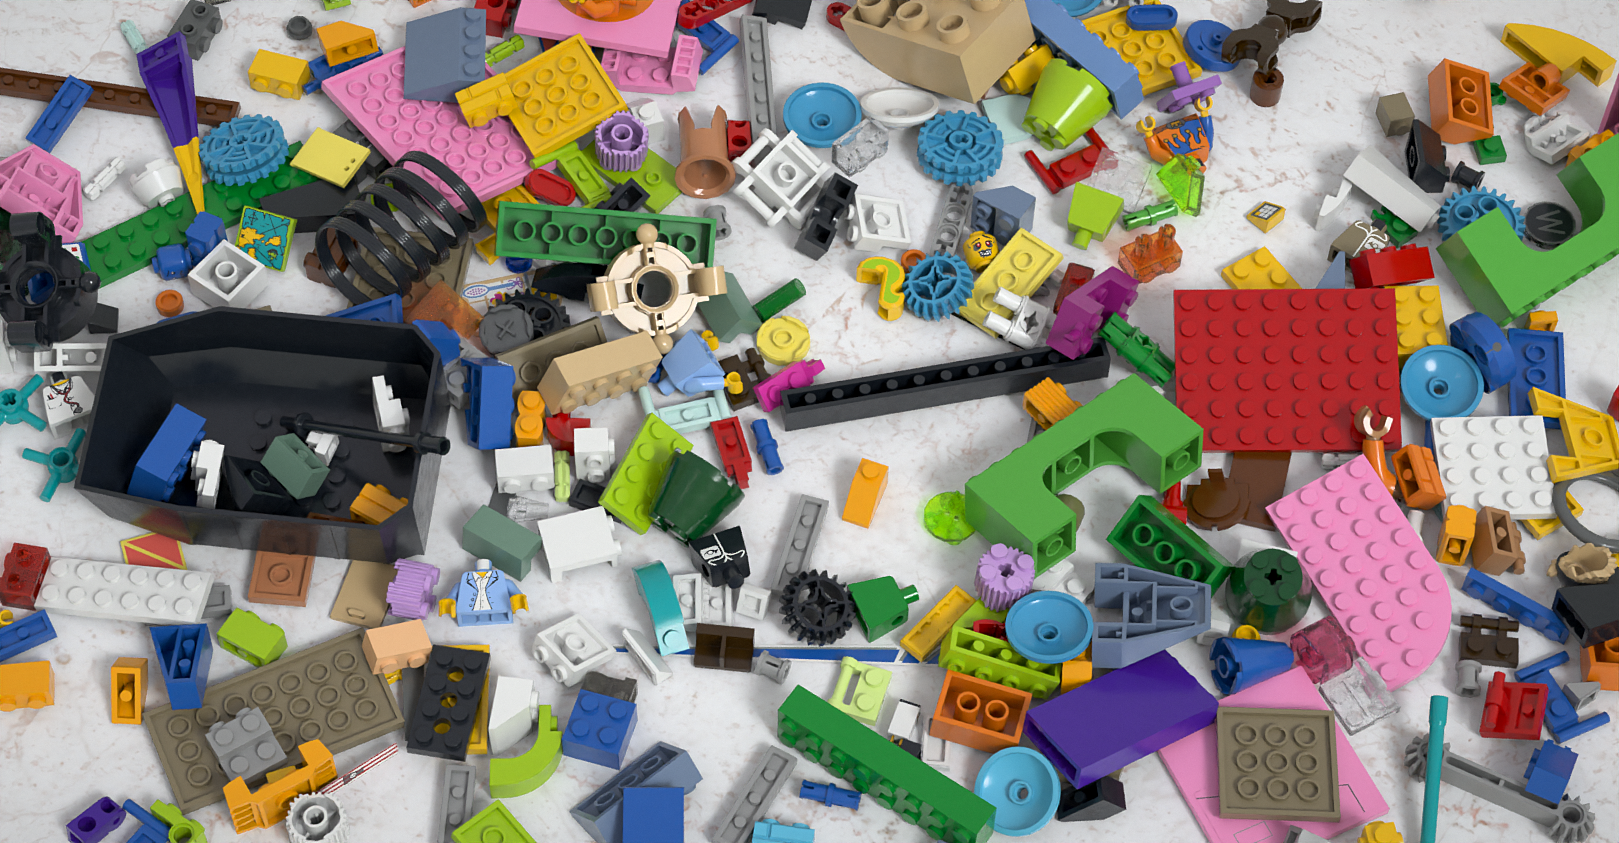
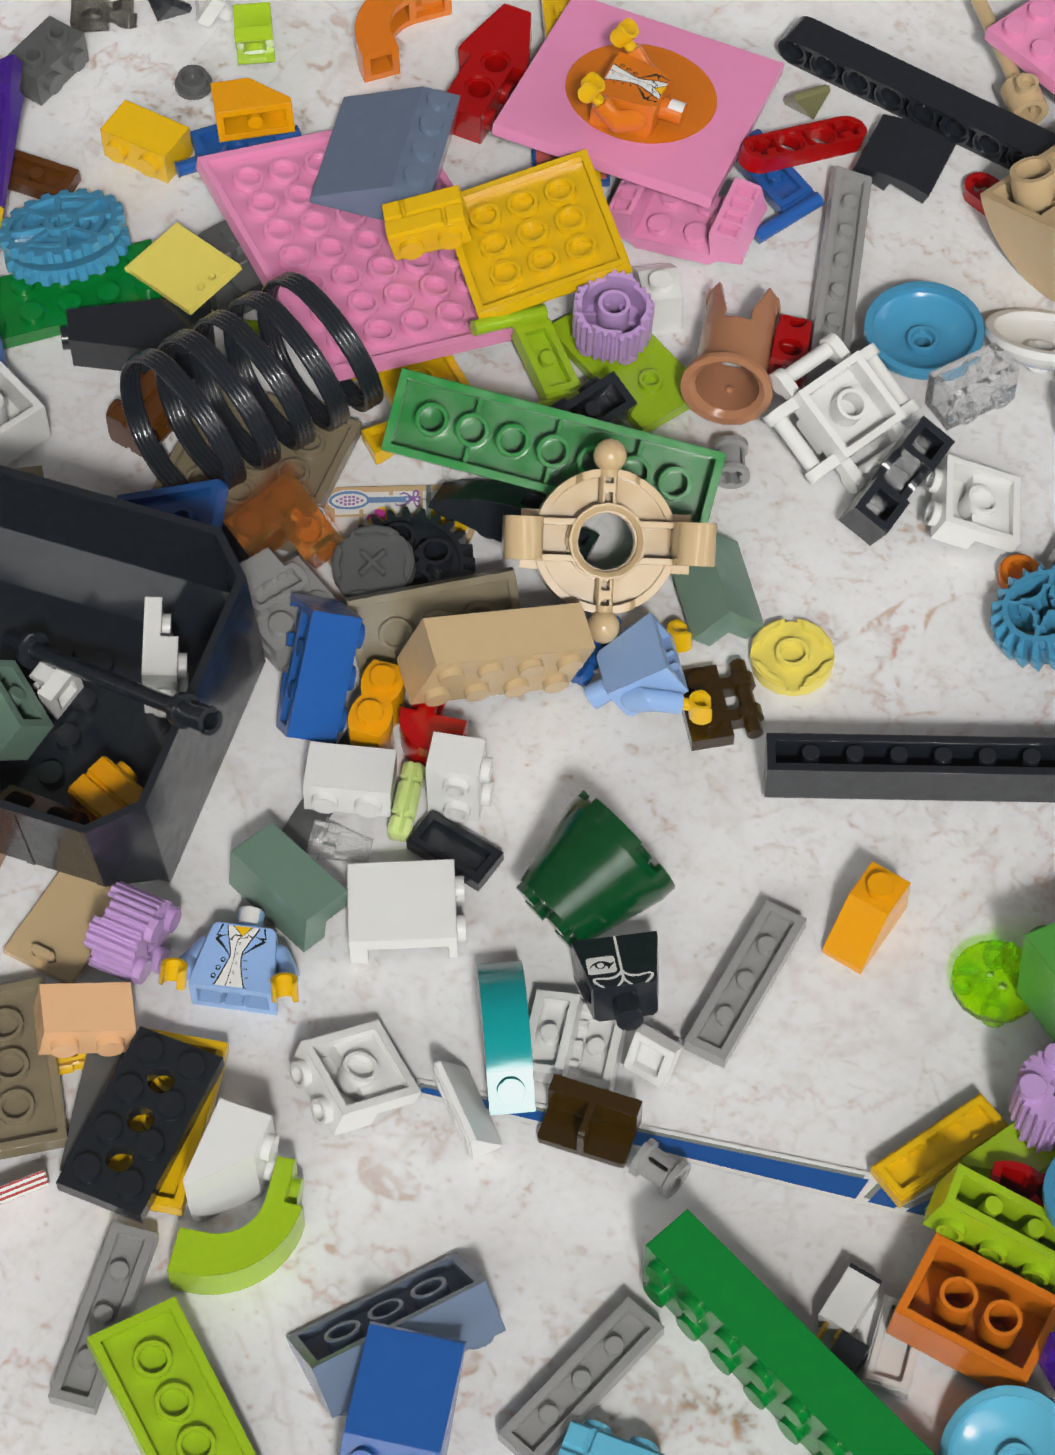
camera: 15 degrees right, 0 degrees up
(266, 237) = (61, 367): tile -> none
(442, 338) = (262, 560): blue slope -> none
(504, 50) = (476, 161): lime axle -> none
(518, 265) = (420, 472): clear blue plate -> none
(550, 187) = (492, 366): red tile -> none
(599, 729) = (363, 1214): blue brick -> none
(612, 687) = (394, 1156): clear smoke leg -> none
(640, 471) = (521, 817): lime plate -> none
(689, 415) = (614, 744): light aqua plate -> none
(733, 449) = (675, 810): red hinge -> none
(766, 446) = (729, 815): blue pin -> none
(783, 300) = (806, 602): green piece -> none
(792, 376) = (791, 714): dark pink hinge -> none
(817, 587) = (785, 1087): black gear -> none
(830, 794) = (705, 1399): blue pin -> none
(868, 692) = (801, 1245): yellowish green plate -> none
(881, 605) = (852, 1102): green torso -> none
(891, 276) = (977, 587): yellow animal -> none

